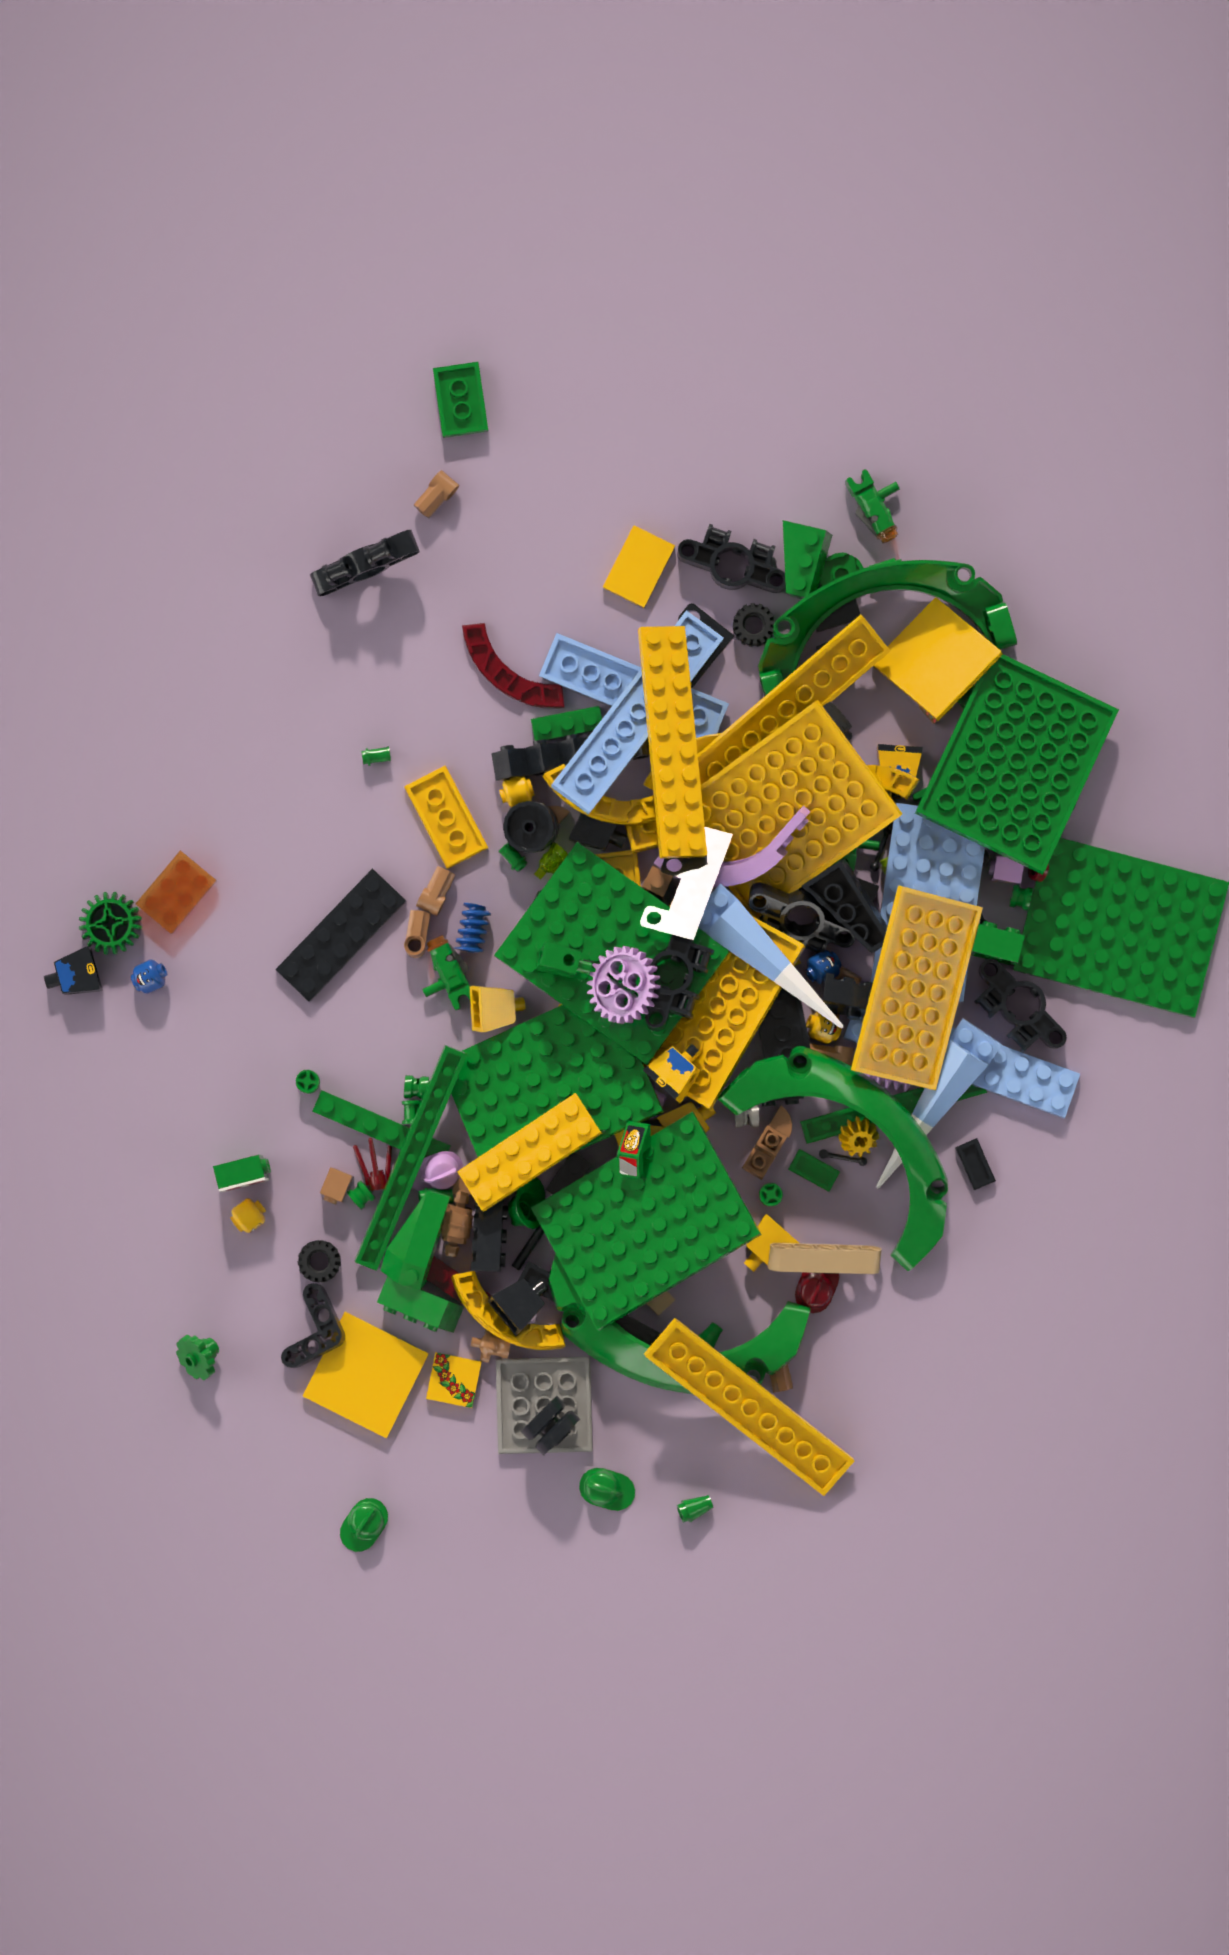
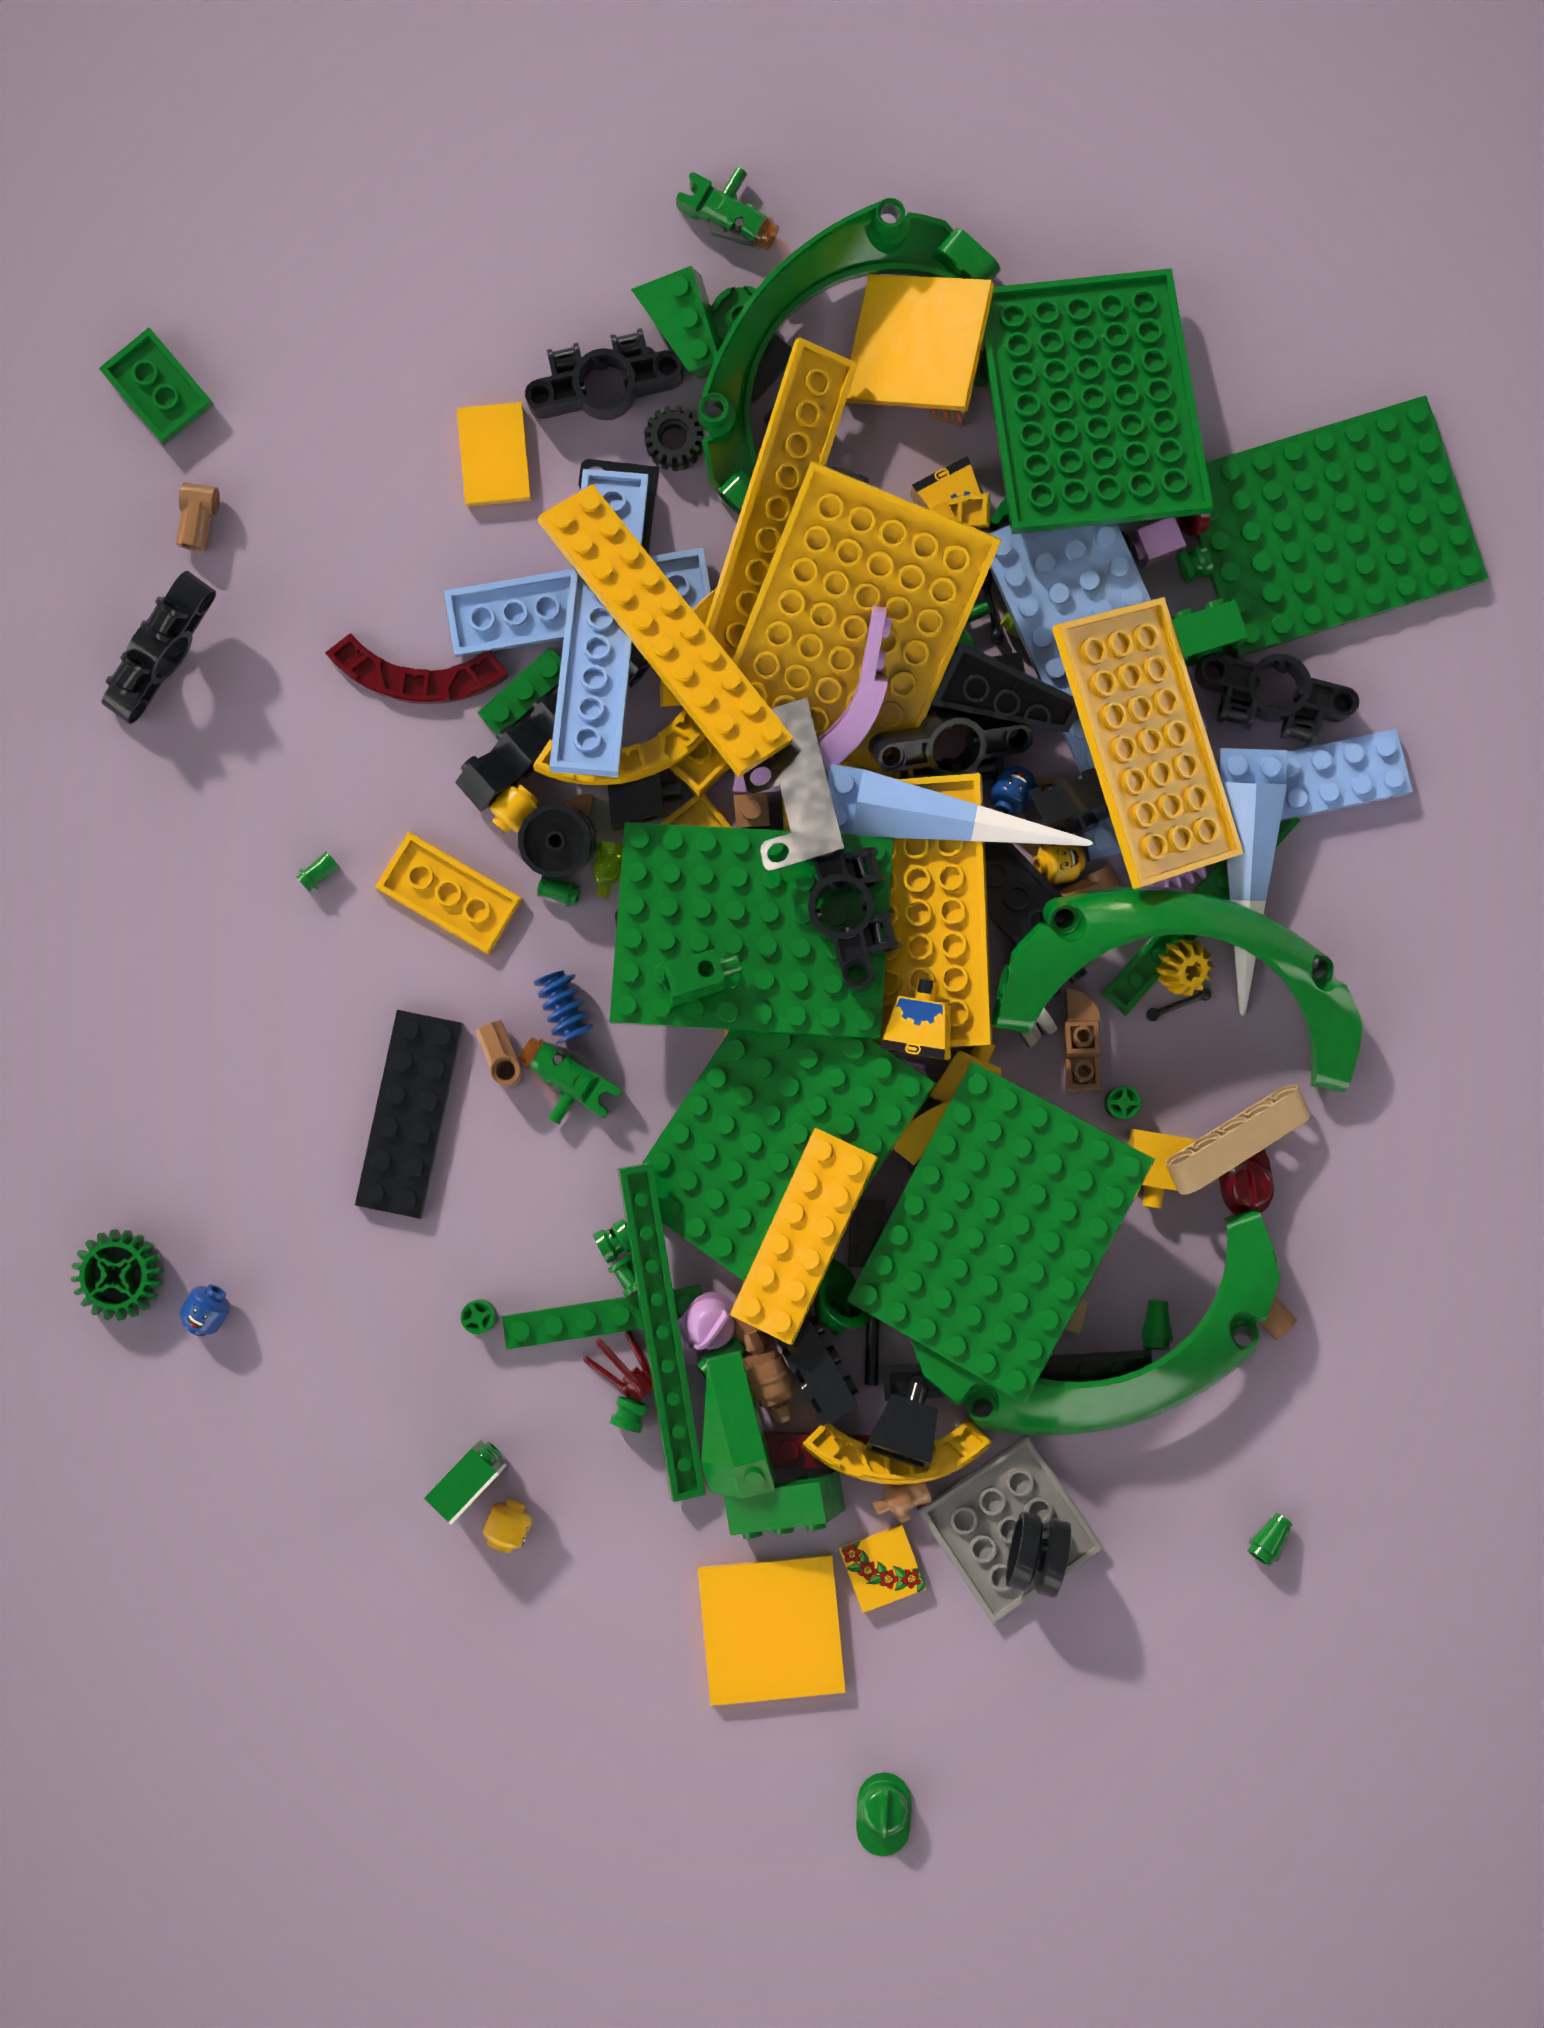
camera: 35 degrees left, 0 degrees up
(75, 973) = (112, 1362): torso -> none
(176, 892) = (175, 1187): clear orange plate -> none
(197, 1356) = (552, 1738): green plant -> none
(324, 1329) = (685, 1606): black beam -> none
(333, 1261) = (623, 1547): black tyre -> none
(336, 1185) = (591, 1422): medium nougat brick -> none
(434, 895) = (492, 996): medium nougat piece -> none
(493, 1007) = (648, 1086): yellow torso -> none
(607, 1489) = (1149, 1582): green piece -> none
(634, 966) = (791, 926): lavender gear -> none
(634, 1143) = (927, 1146): slope -> none
(749, 1407) = (1263, 1378): yellow plate -> none
(814, 1170) = (1154, 1041): green tile -> none
(975, 1164) = (1340, 913): black tile -> none

